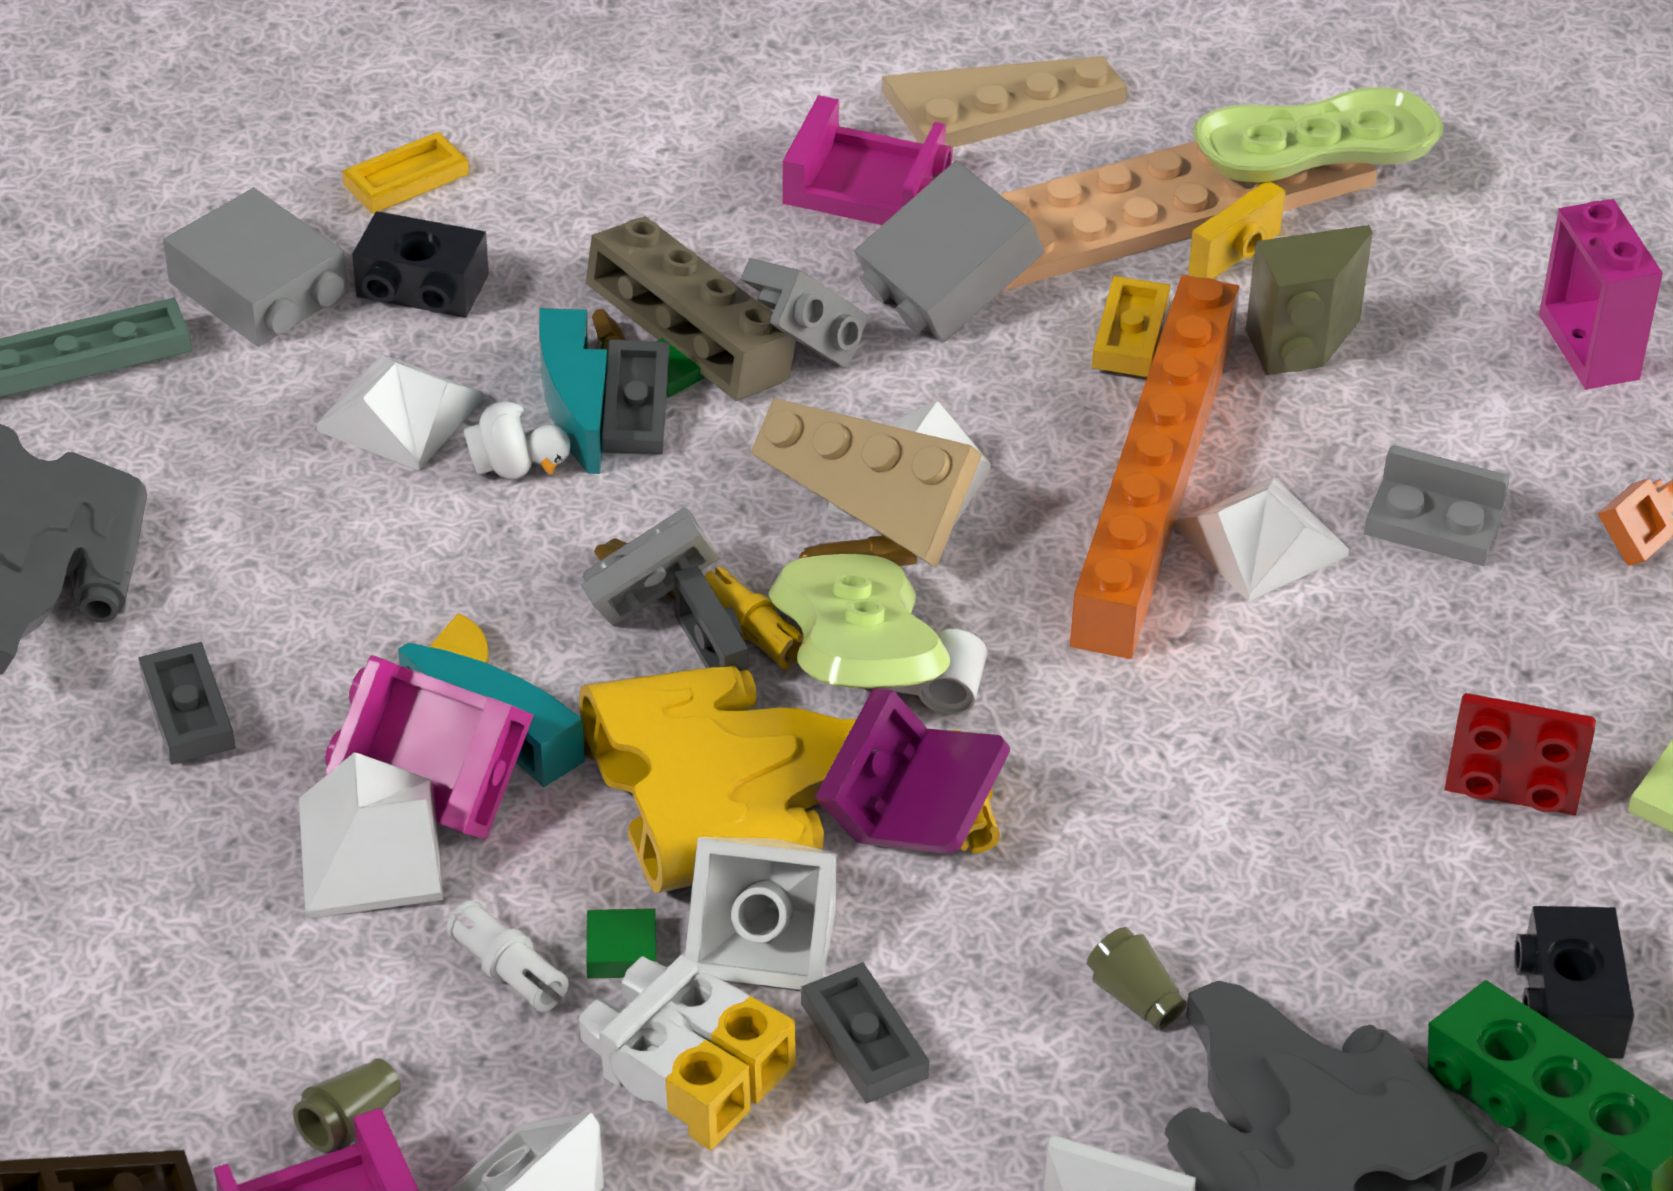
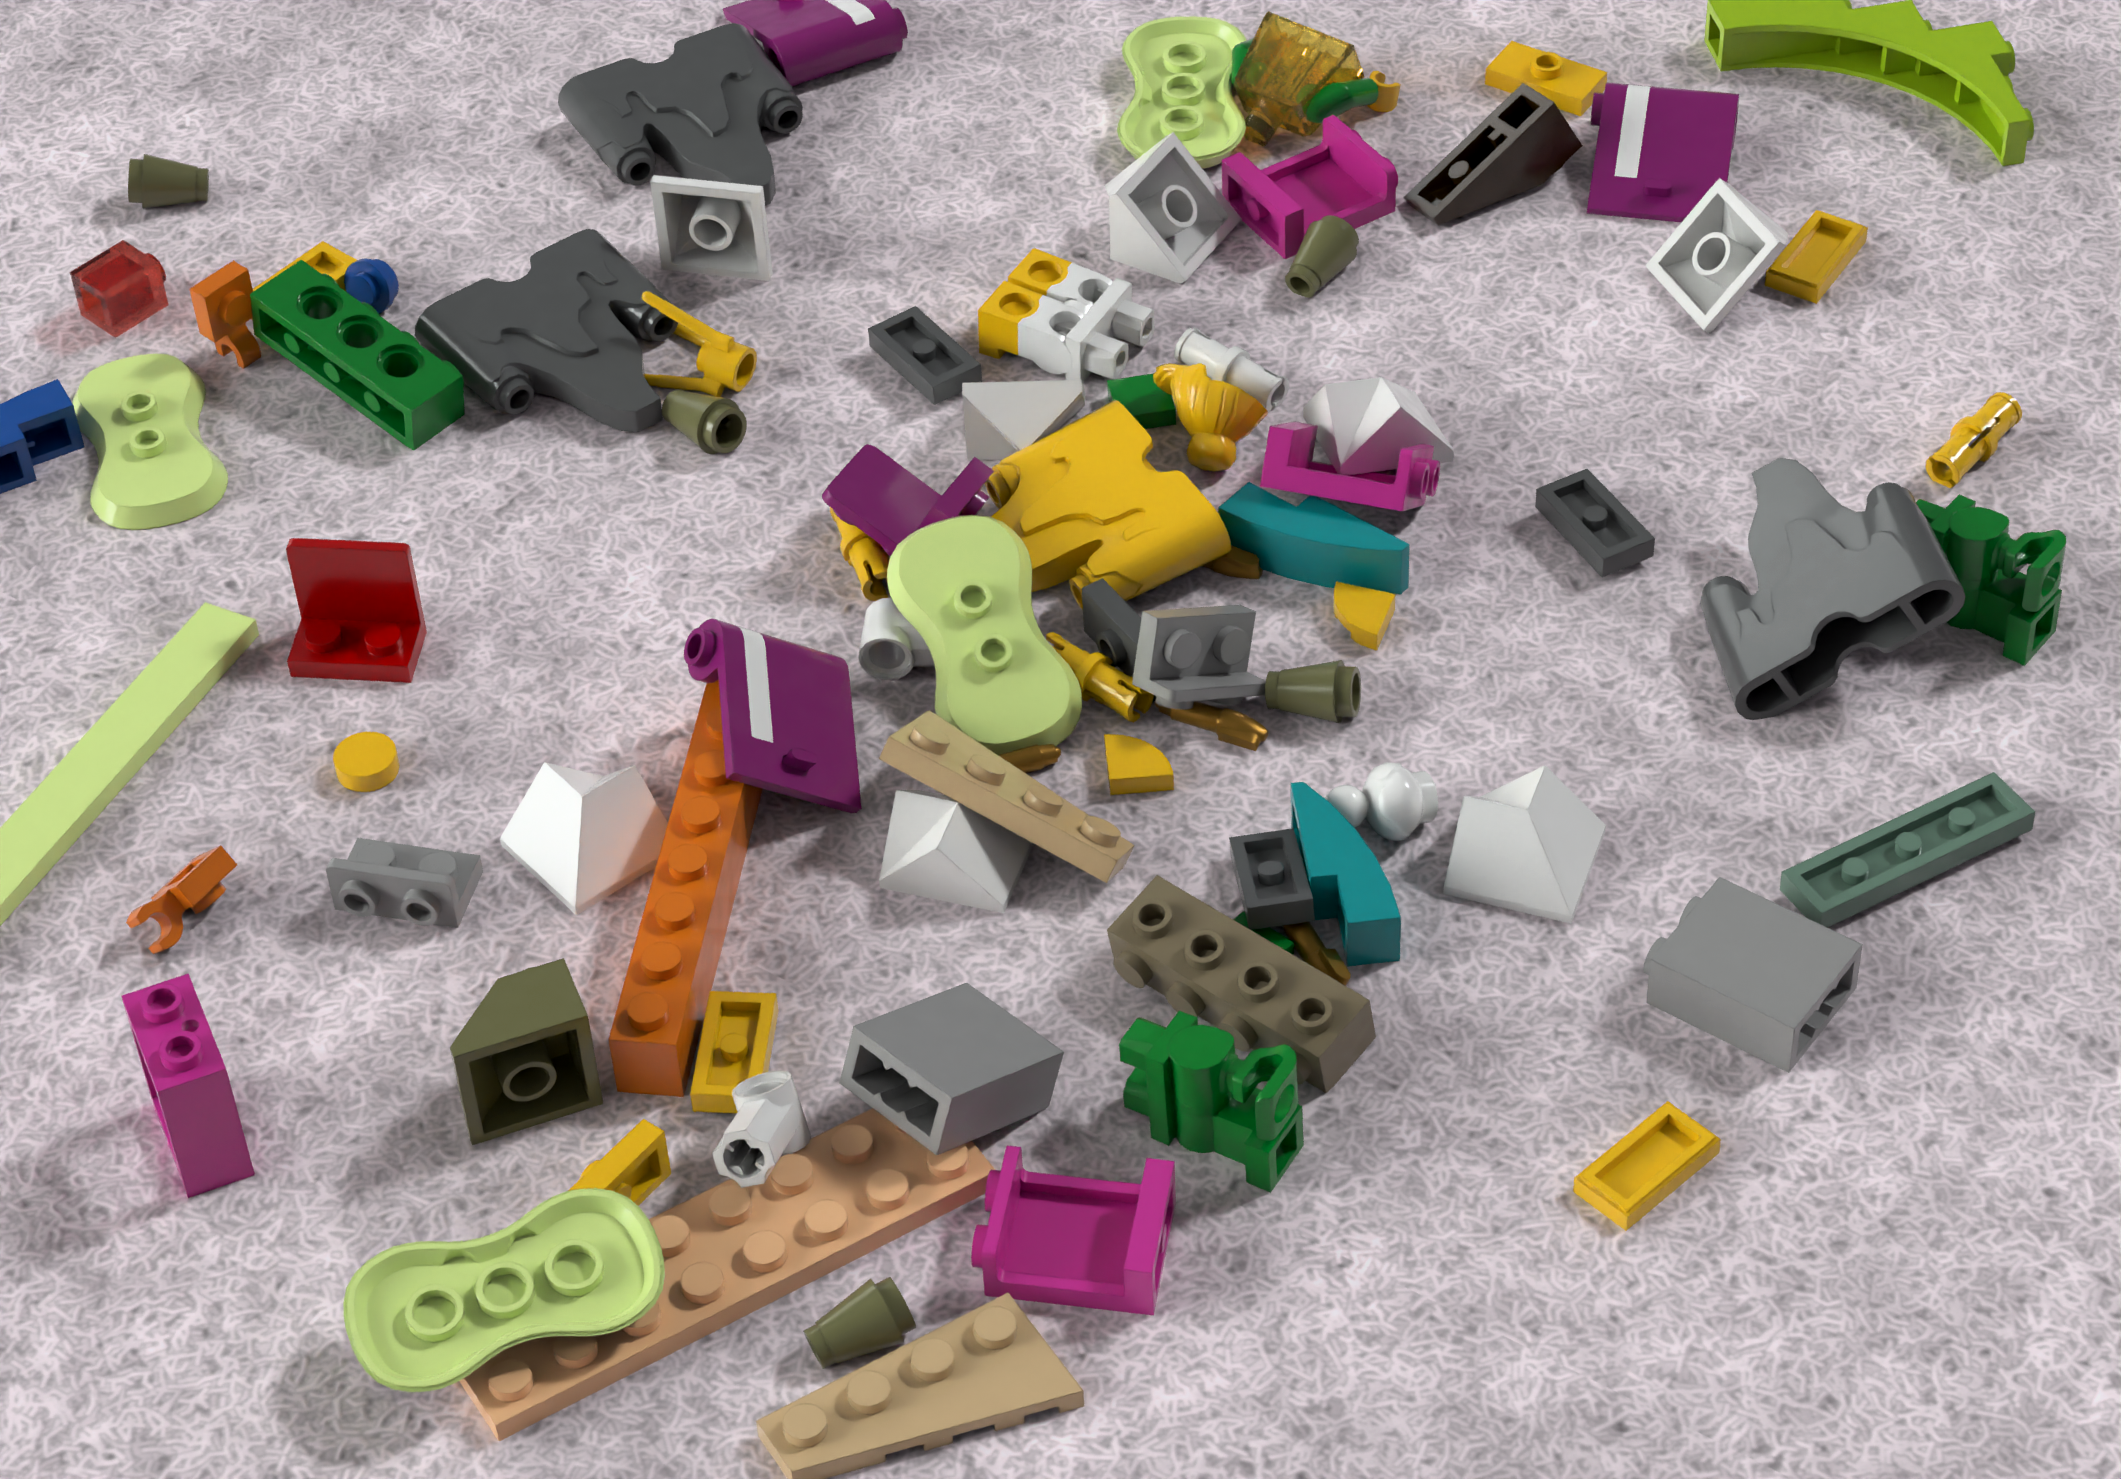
camera: 175 degrees right, 0 degrees up
(420, 264) = (1567, 1003): black brick -> none
(537, 562) = (1316, 691): none -> olive cone
(547, 878) = (1211, 413): none -> yellow hair
(732, 530) = (1136, 766): none -> yellow tile
(736, 204) = (1209, 1097): none -> green hips
(807, 310) = (1105, 964): light grey bracket -> none
(1041, 131) = (861, 1324): none -> olive cone
(1074, 564) = (780, 713): none -> magenta door
(1111, 226) = (763, 1130): none -> white piece
(1114, 1057) = (719, 358): none -> yellow plant
(1489, 639) = (366, 761): none -> yellow tile
(1578, 974) = (333, 456): black brick -> none

